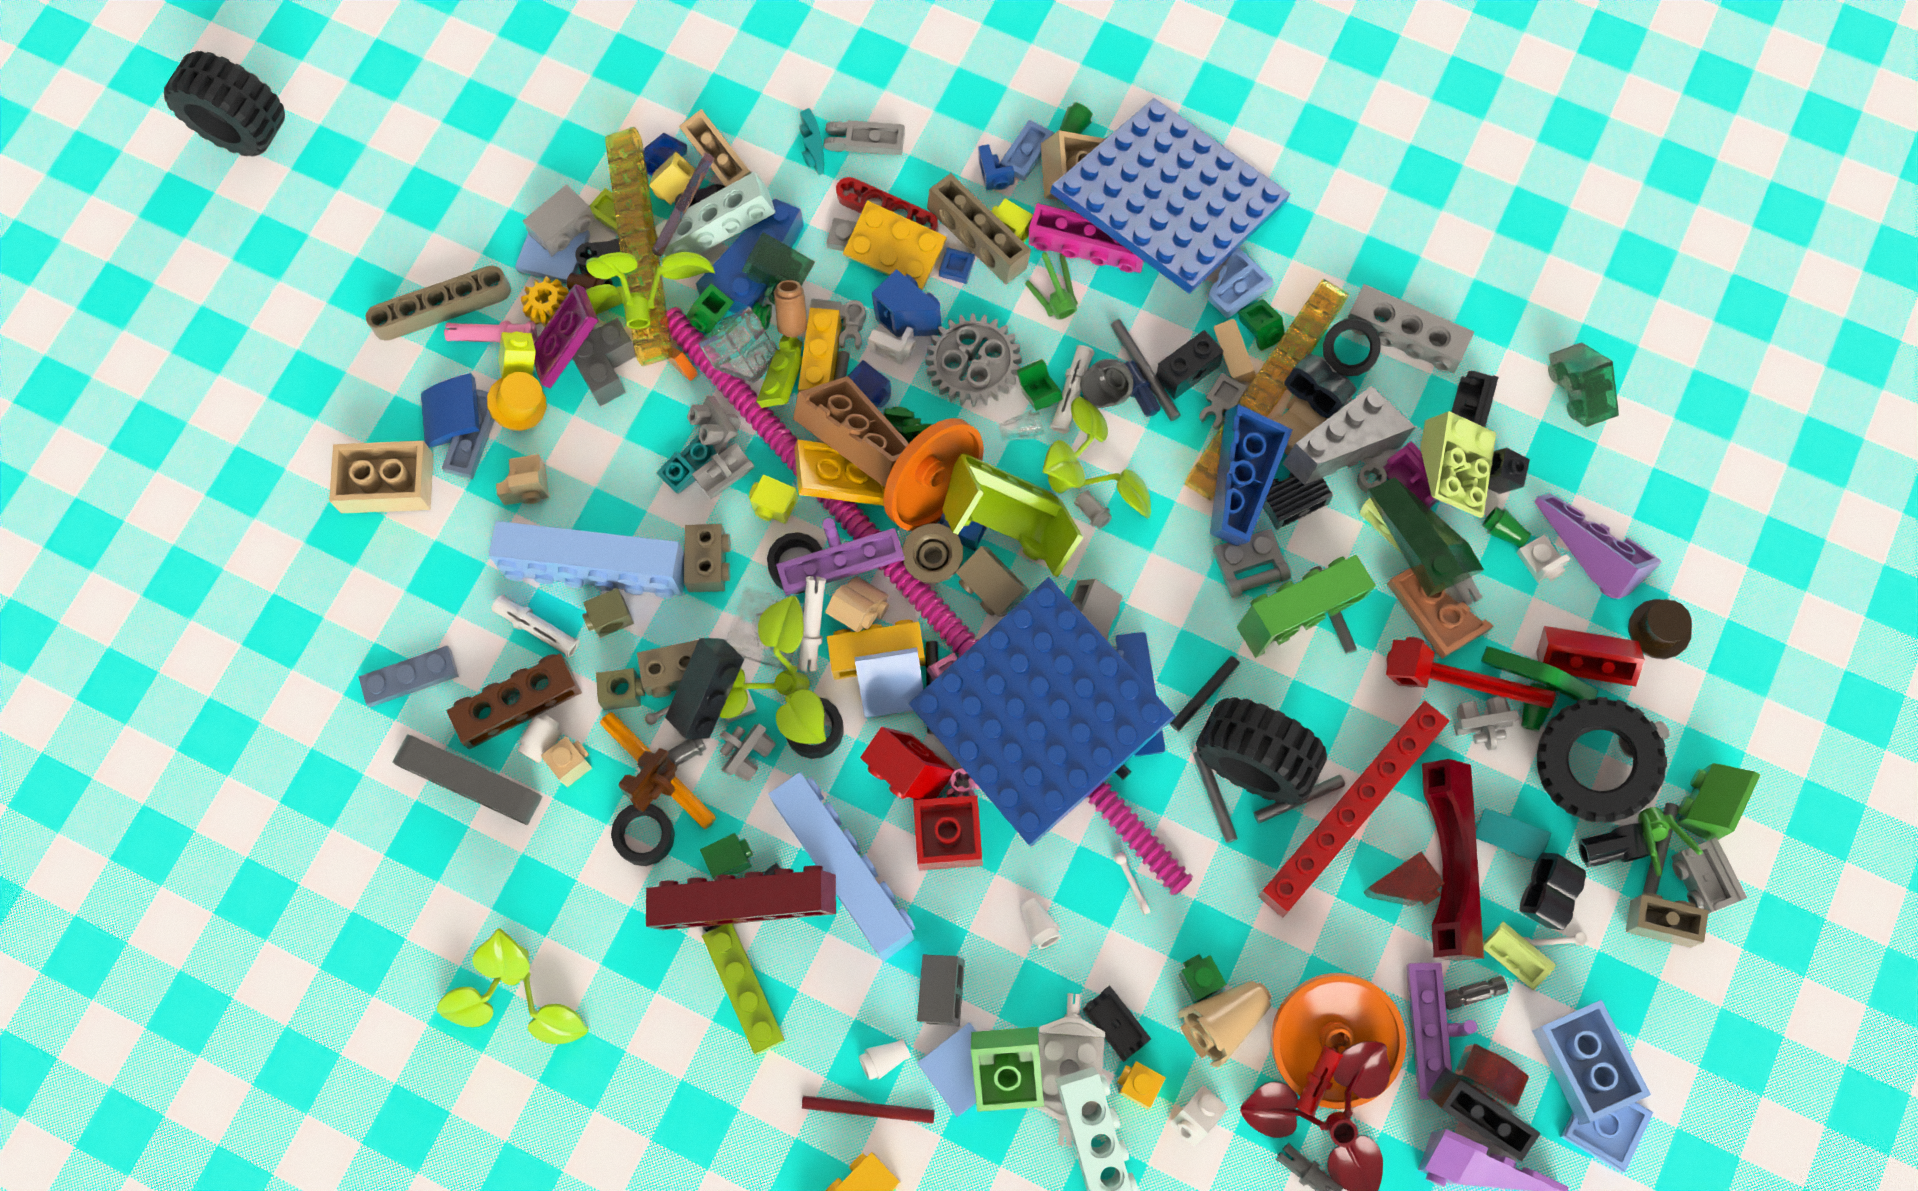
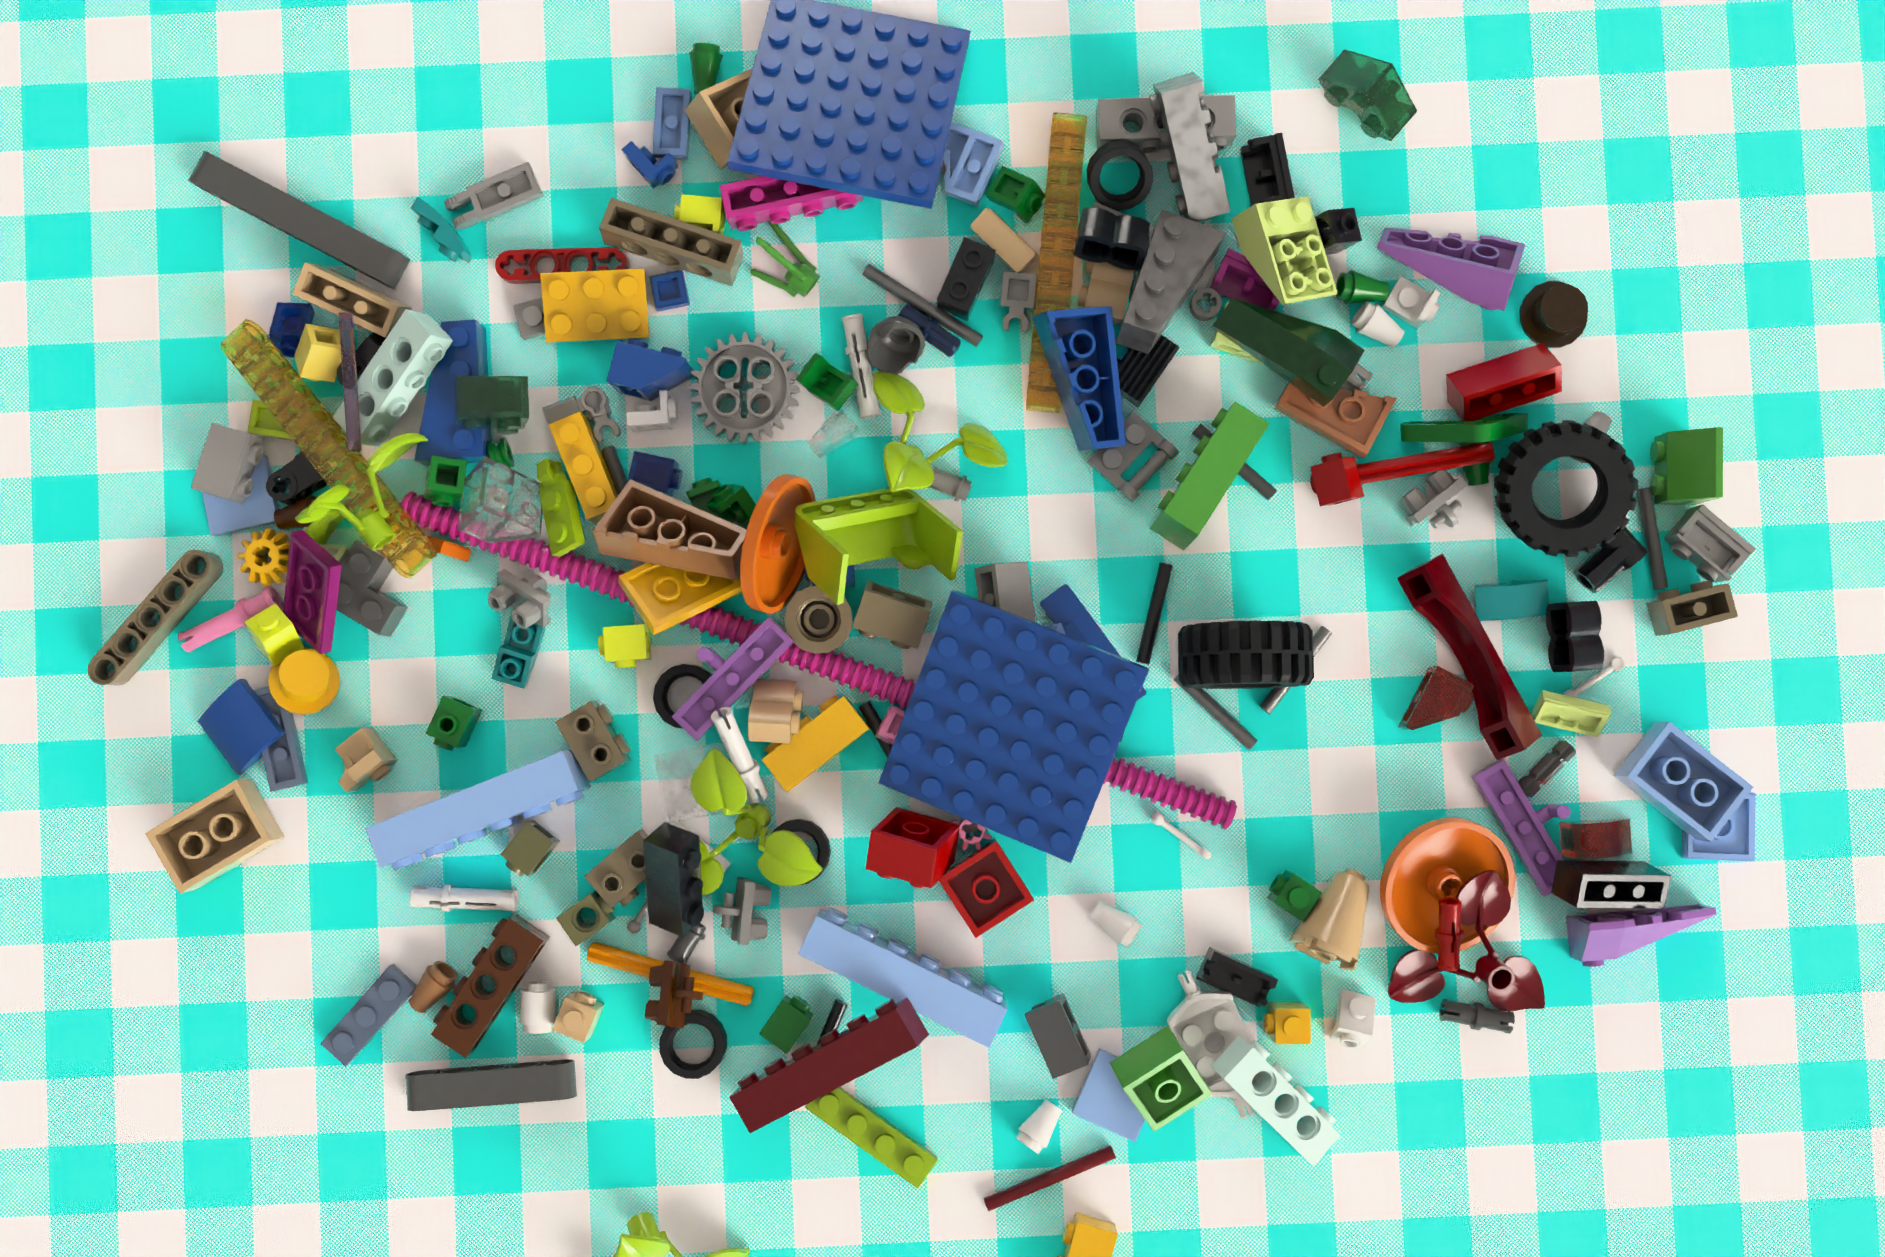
camera: 30 degrees left, 15 degrees up
(470, 679) = (433, 985): none -> medium nougat cone
(607, 489) = (453, 723): none -> green brick
(715, 86) = (299, 220): none -> dark grey beam
(723, 470) = (559, 642): light grey hips -> none
(790, 308) = (531, 440): medium nougat head -> none
(888, 681) = (847, 770): light blue tile -> none
(1353, 809) = (1353, 654): red brick -> none
(1418, 350) = (1190, 147): none -> wedge
(1506, 562) = (1377, 324): none -> white cone
(1656, 828) = (1643, 523): bright green plant -> none

